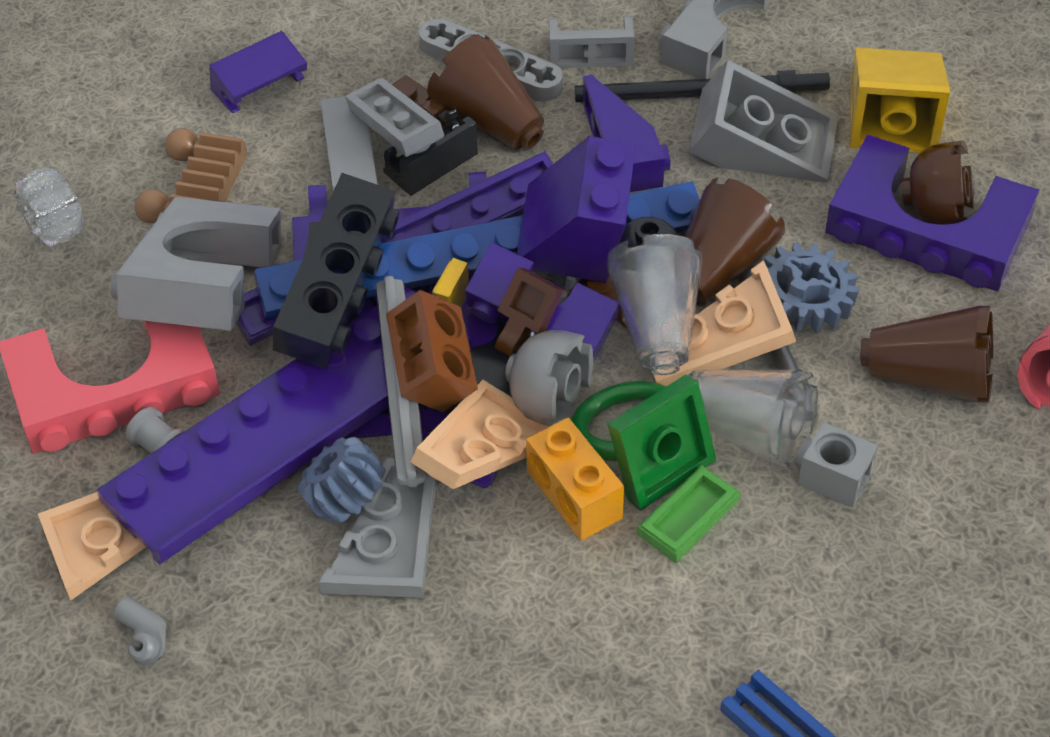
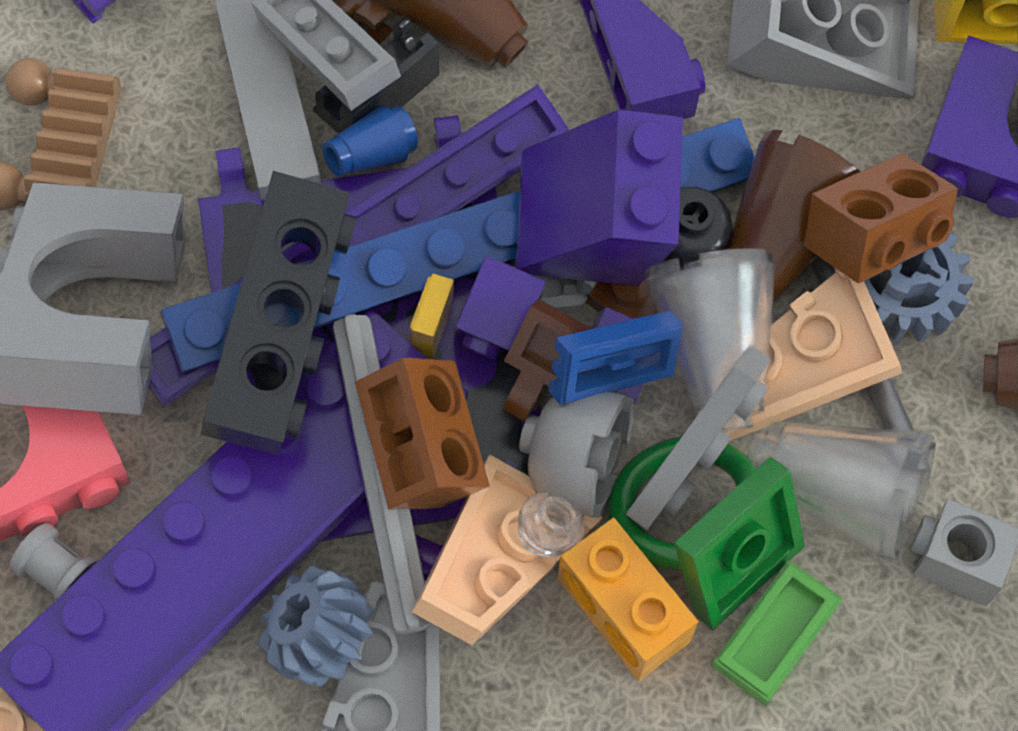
camera: 10 degrees left, 15 degrees up
(423, 184) = (372, 142): none -> blue cone
(519, 420) = (549, 525): none -> clear plate
(579, 289) = (616, 347): none -> blue tile
(636, 362) = (703, 439): none -> light grey plate
(785, 234) = (880, 217): none -> dark orange brick

